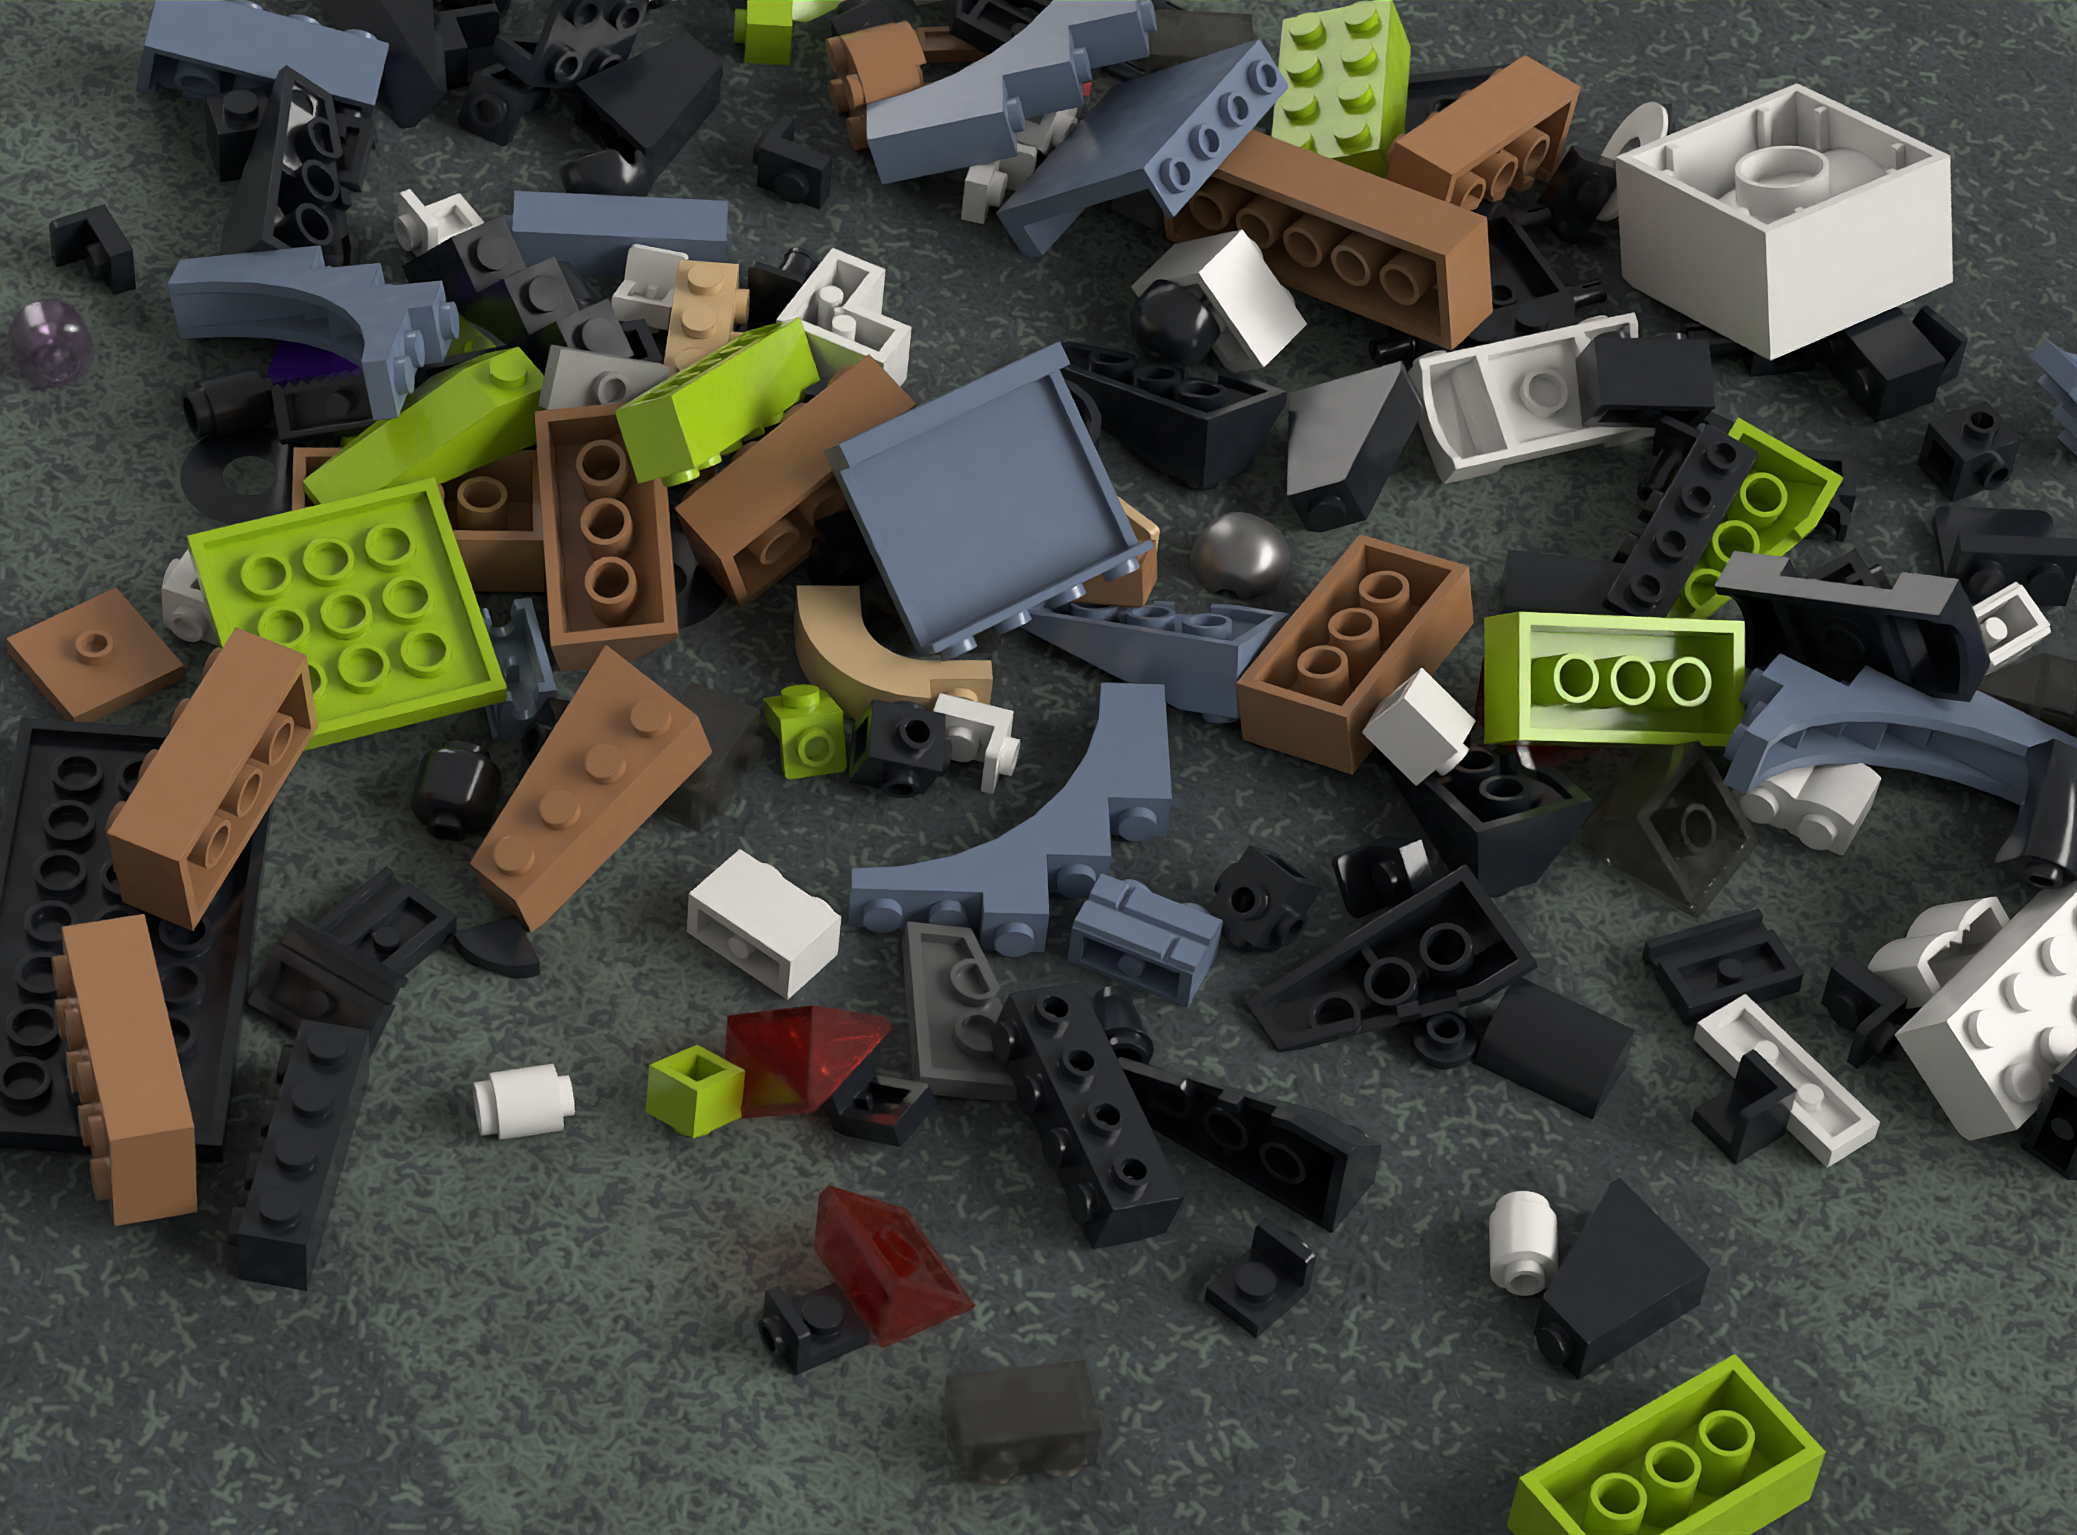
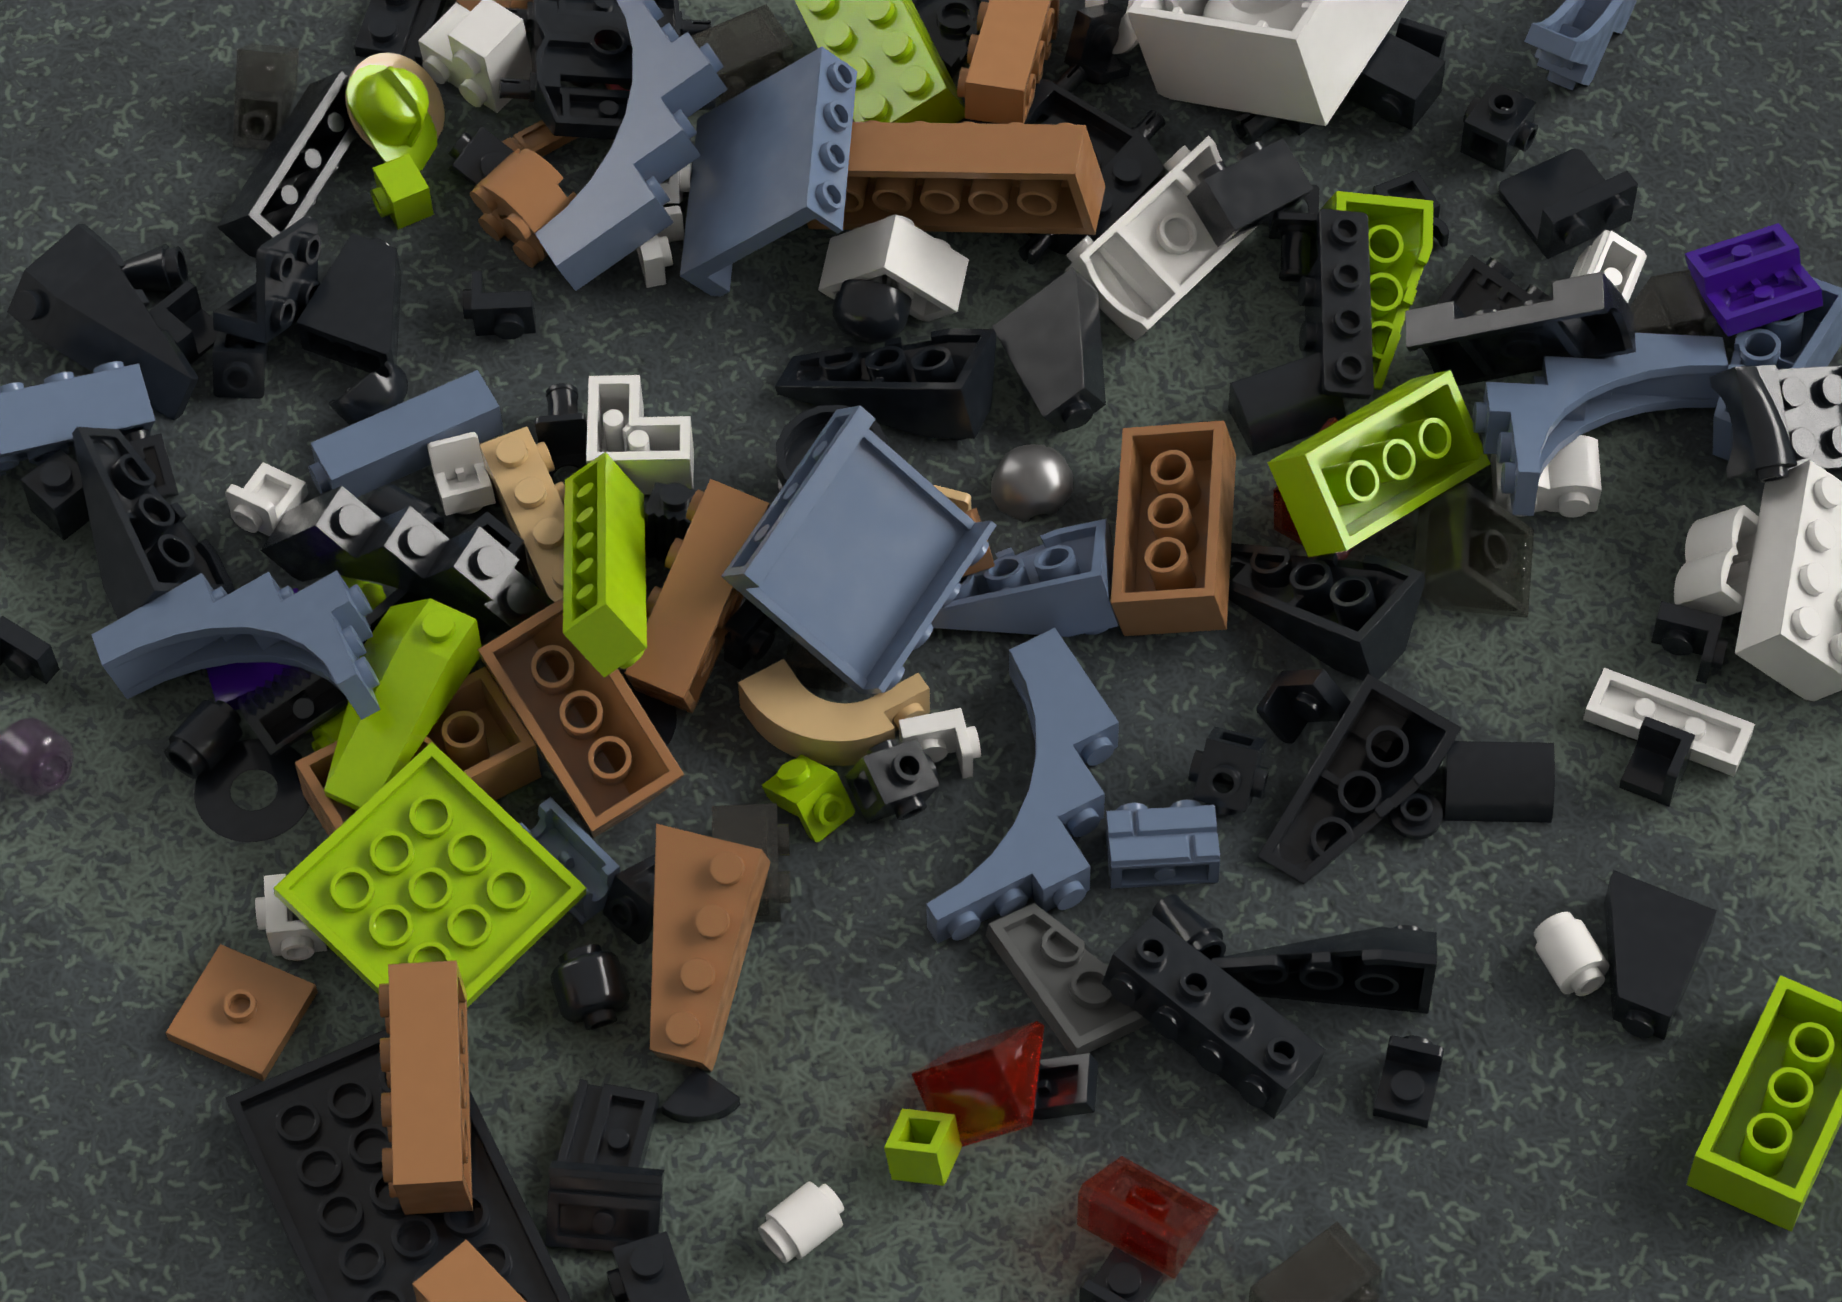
camera: 20 degrees left, 10 degrees up
(595, 378) = (512, 598): light grey plate -> none
(763, 923) = (883, 978): white brick -> none
(1420, 728) = (1266, 574): white brick -> none
(1720, 963) = (1572, 651): black plate -> none

